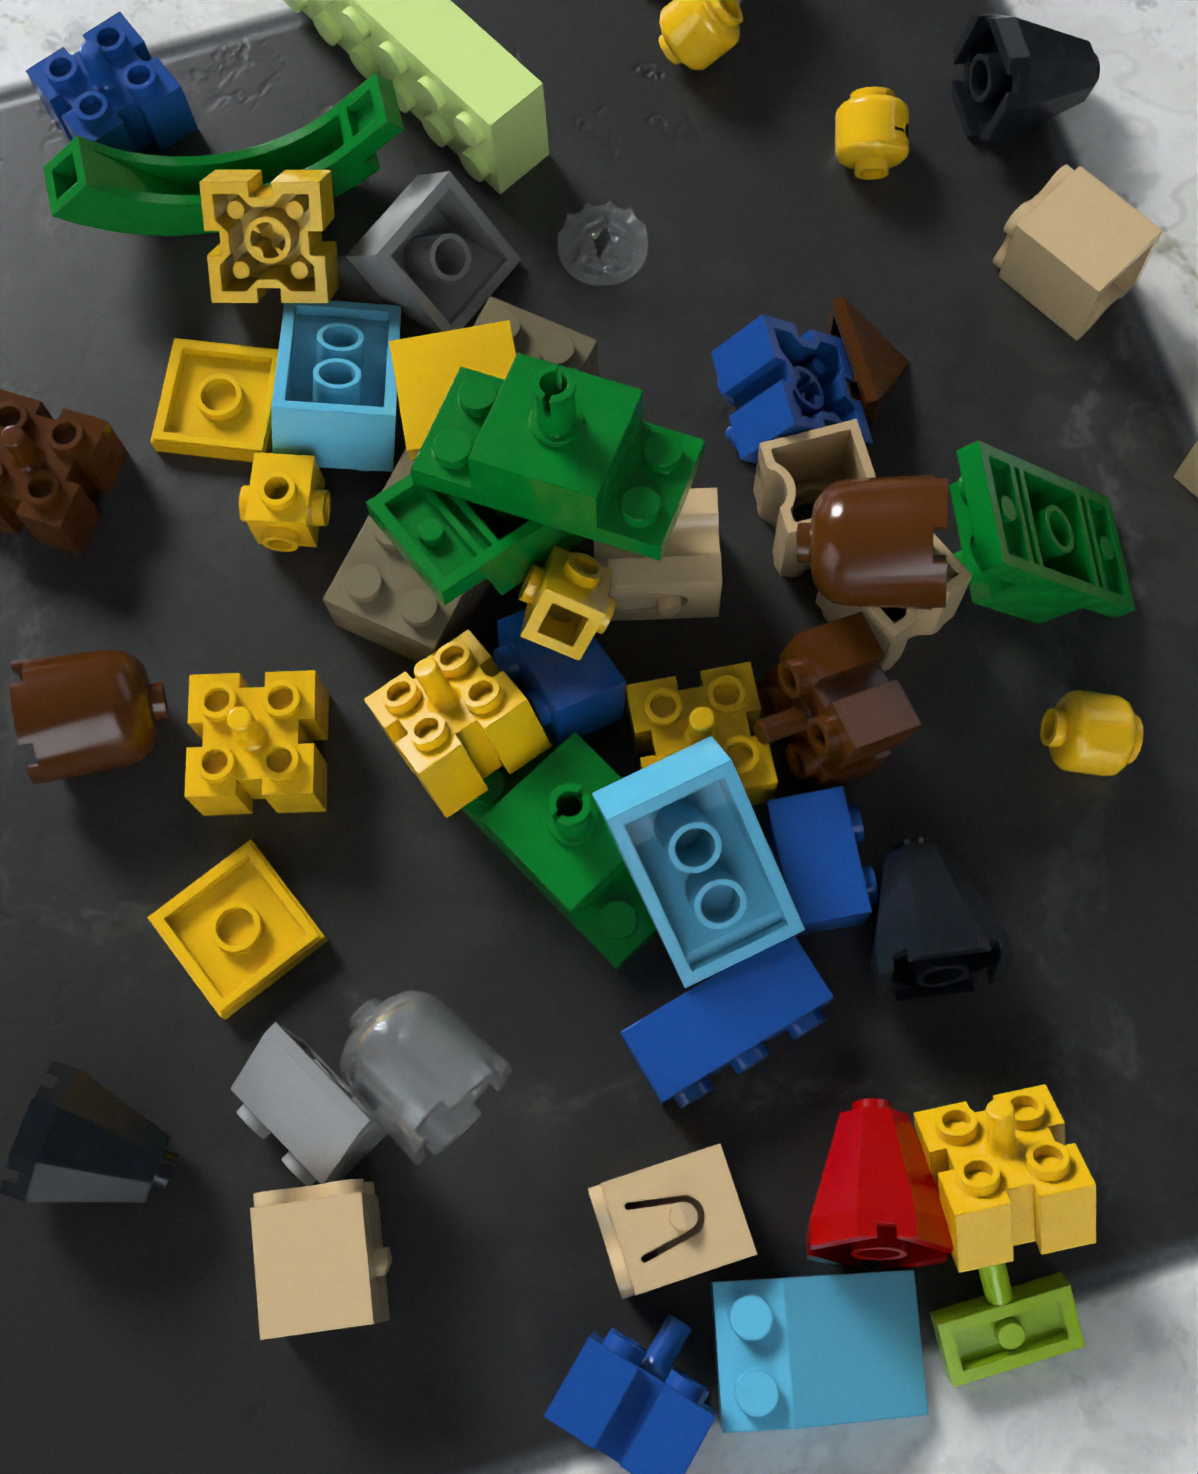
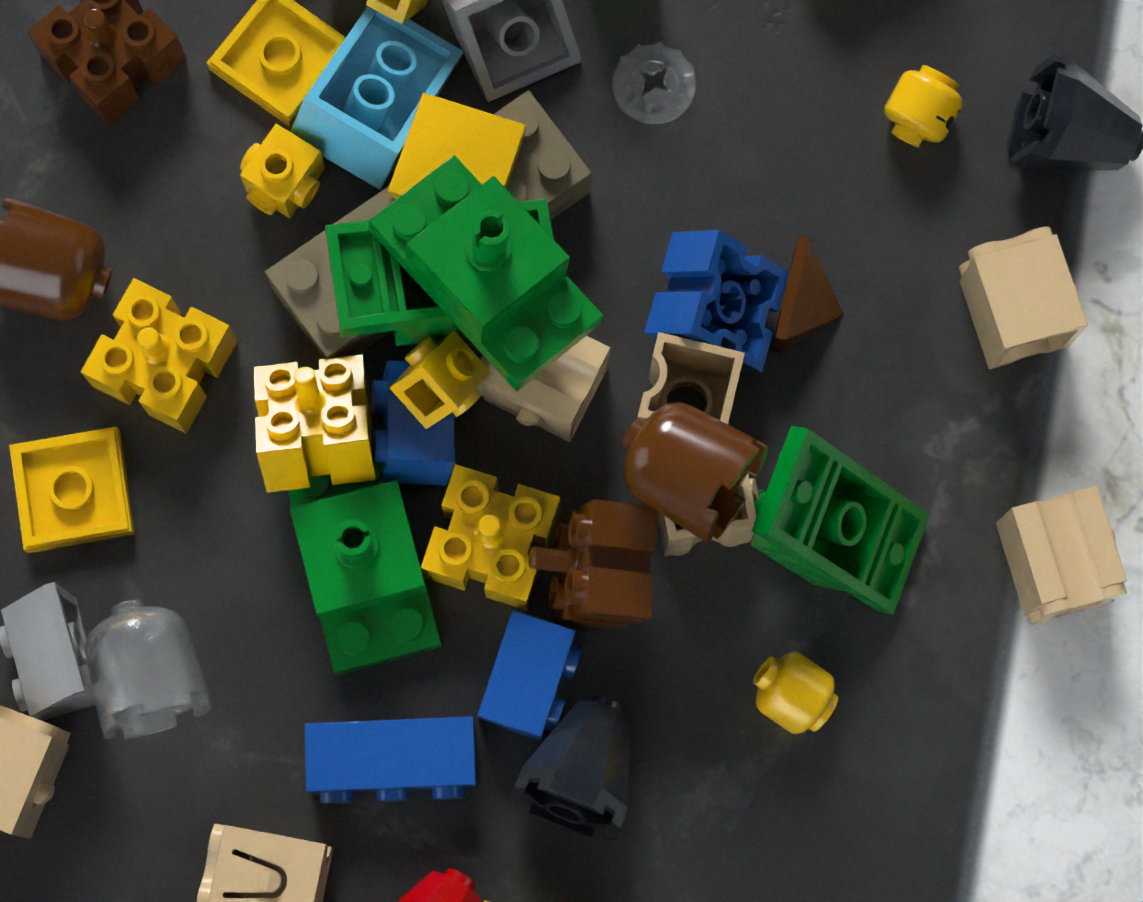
camera: 20 degrees right, 5 degrees up
(699, 860) = (427, 629): medium azure slope -> none

